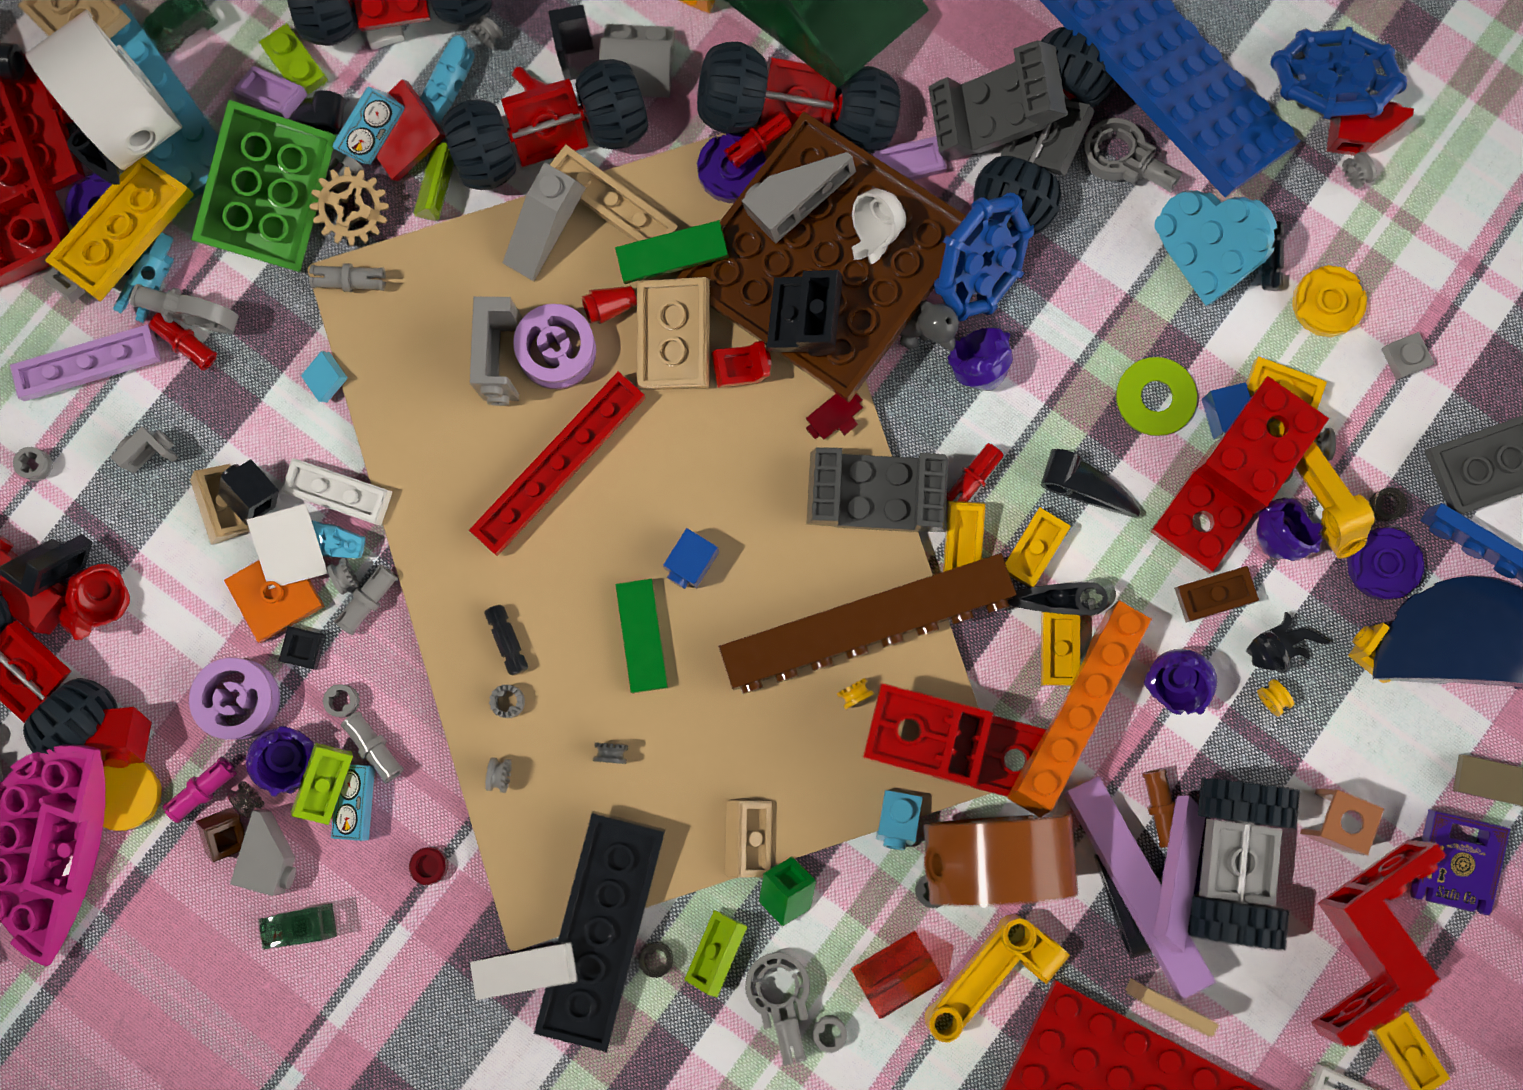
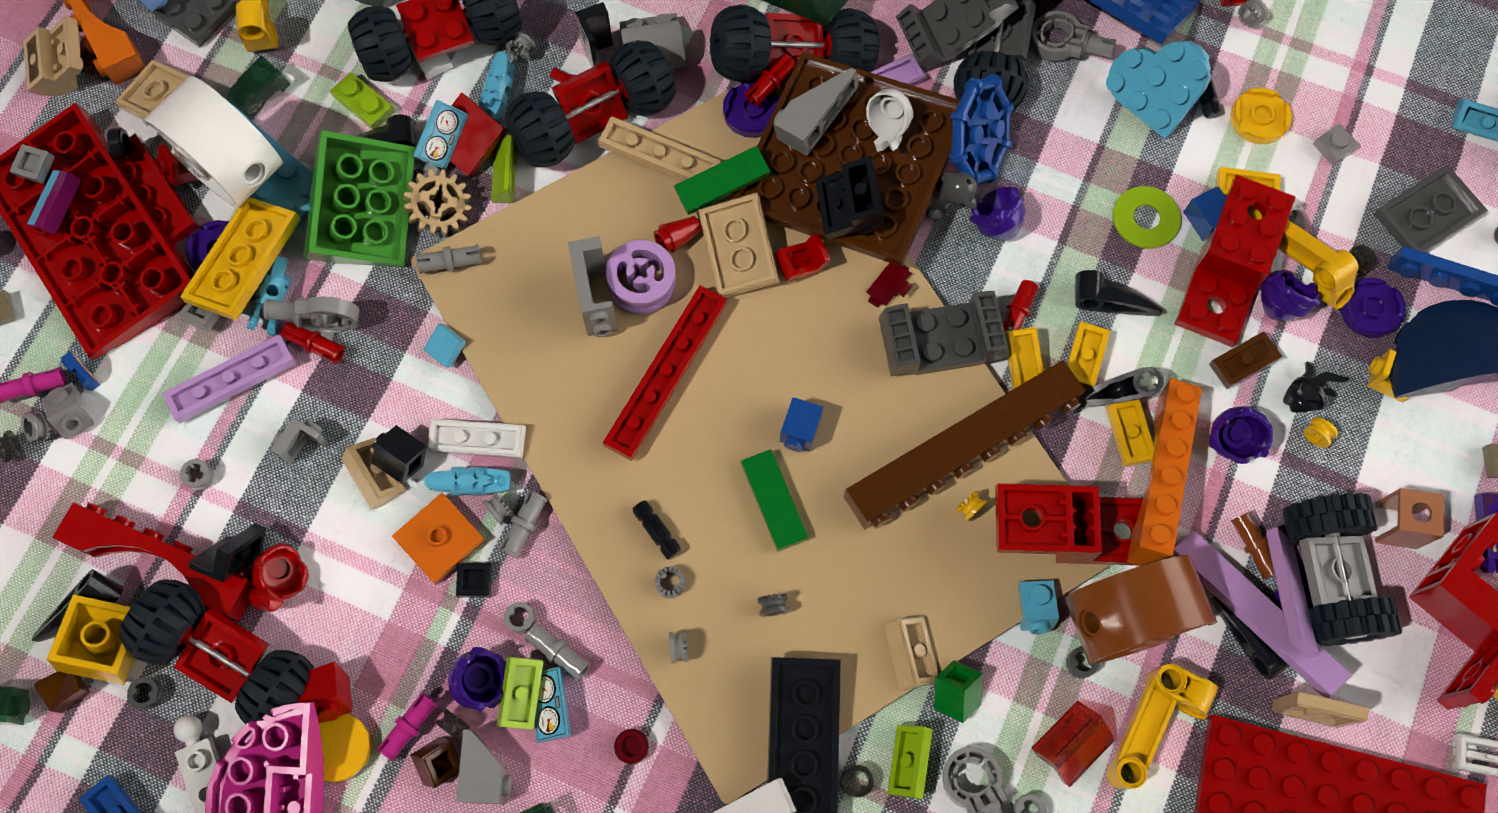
camera: 20 degrees left, 10 degrees down
(92, 157) = (208, 203): black piece -> none
(212, 706) = (407, 657): lavender wheel -> none
(269, 92) = (350, 123): lavender tile -> none
(287, 546) = (444, 491): white sticker -> none
(542, 220) = (606, 177): light grey slope -> none

